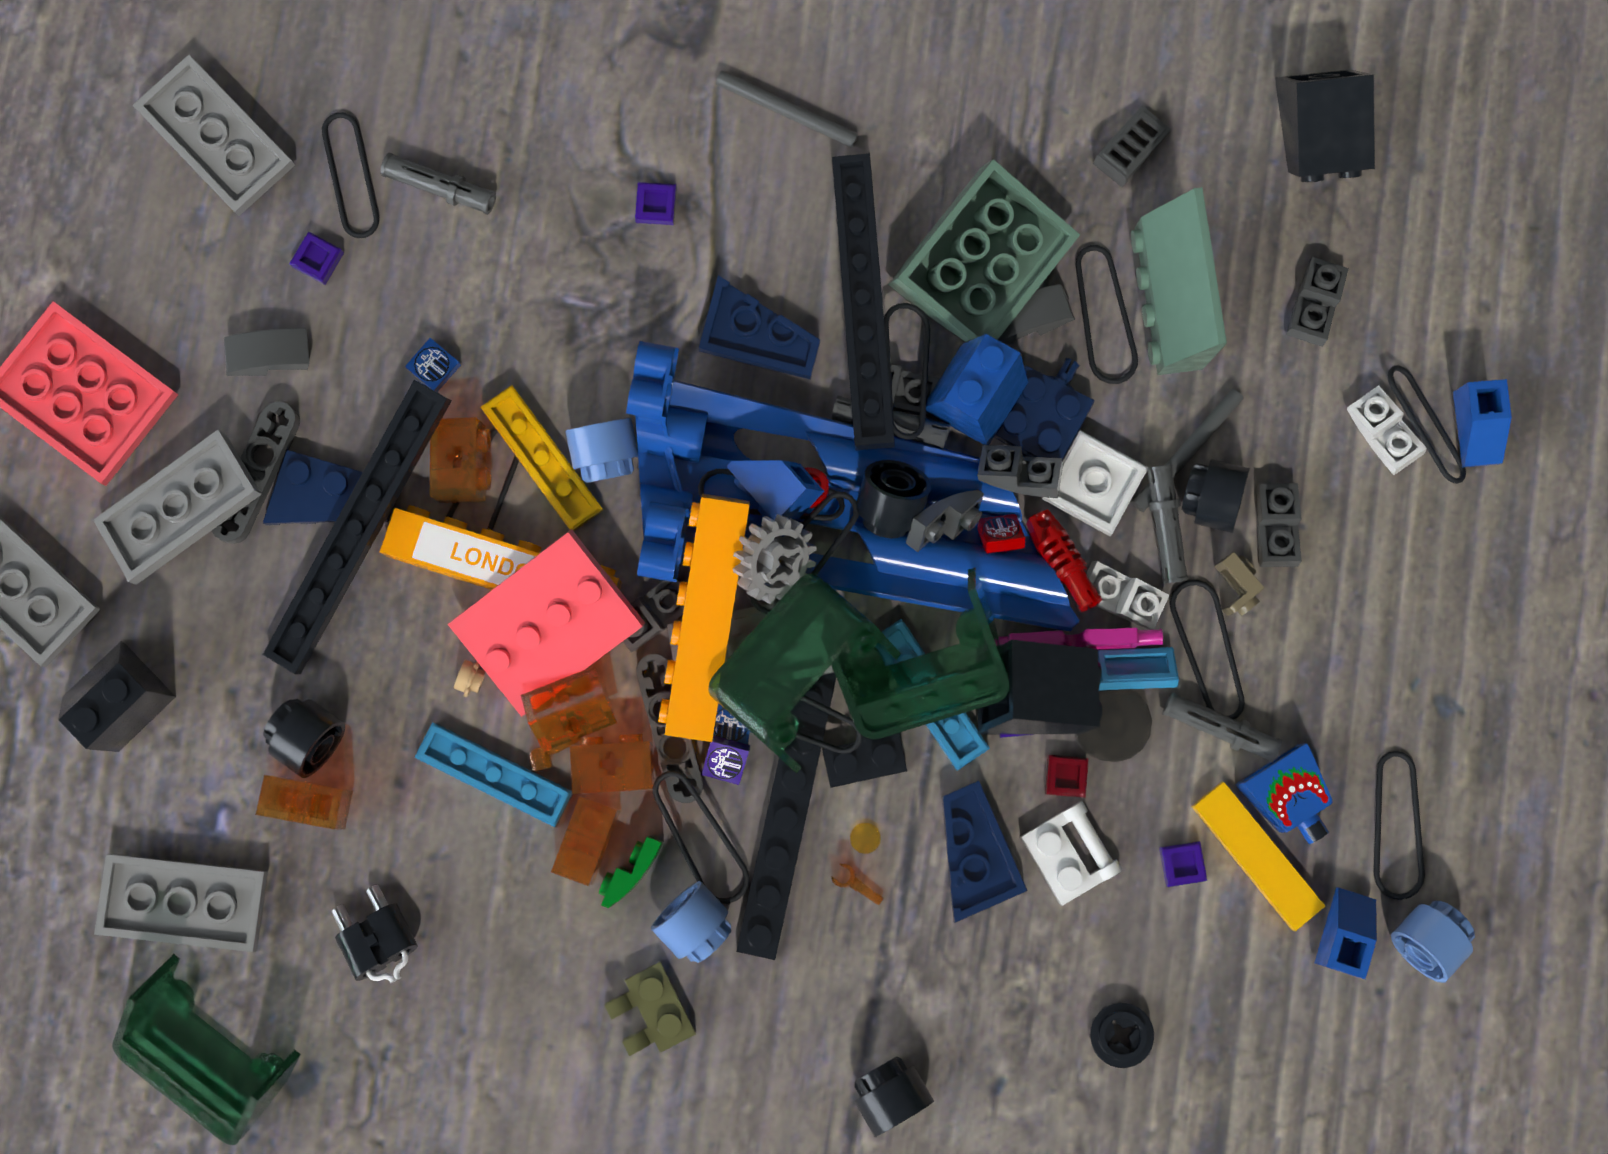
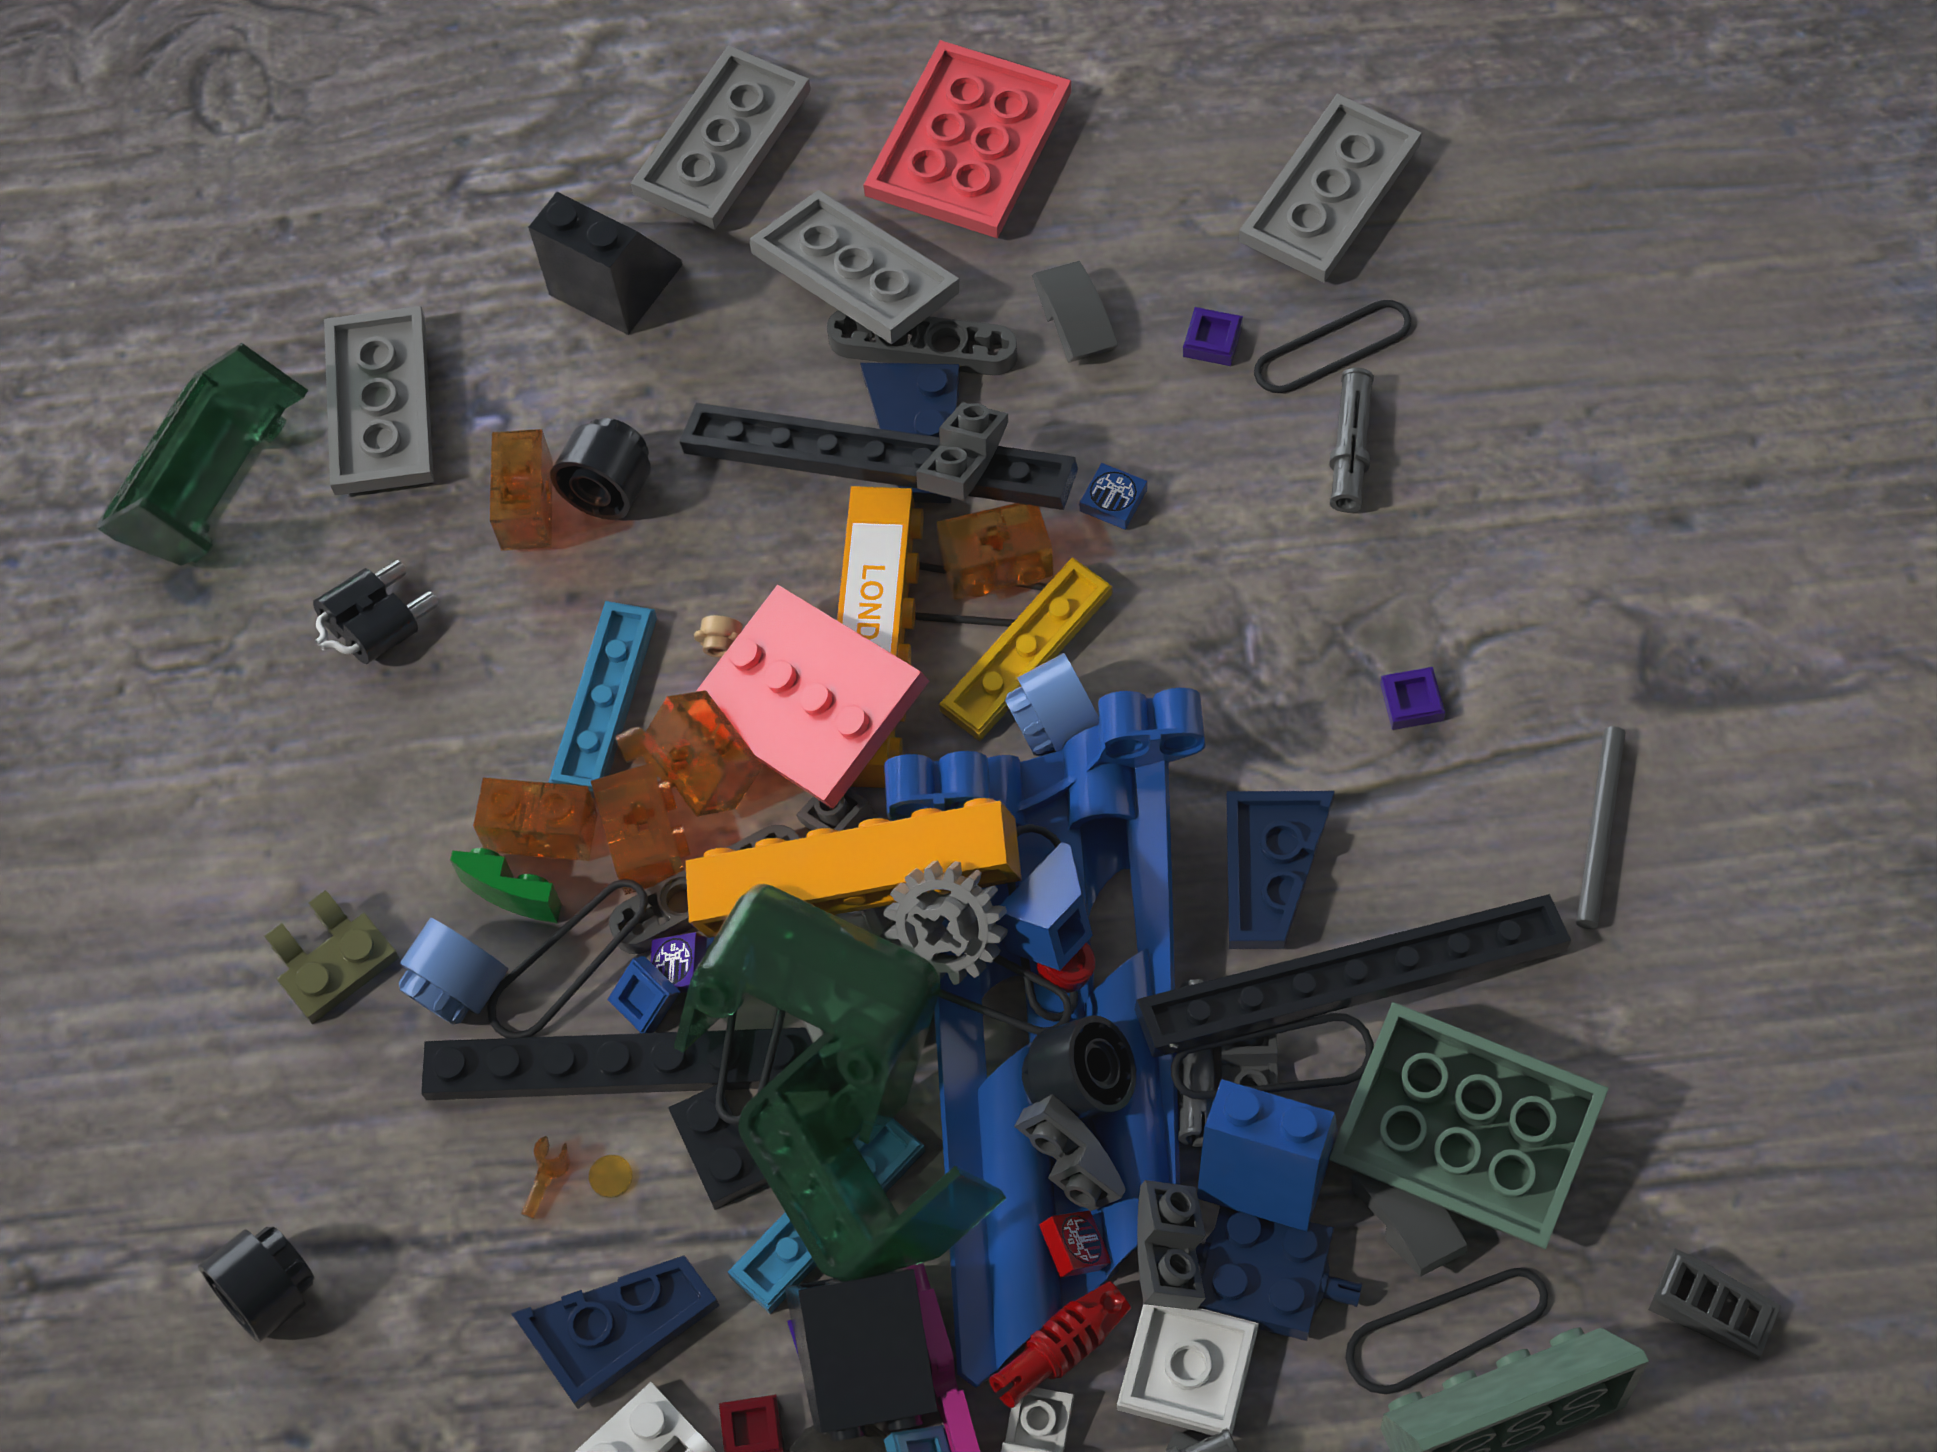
camera: 85 degrees right, 20 degrees down
(384, 460) = (964, 451): none -> dark grey slope
(743, 788) = (643, 995): none -> blue tile

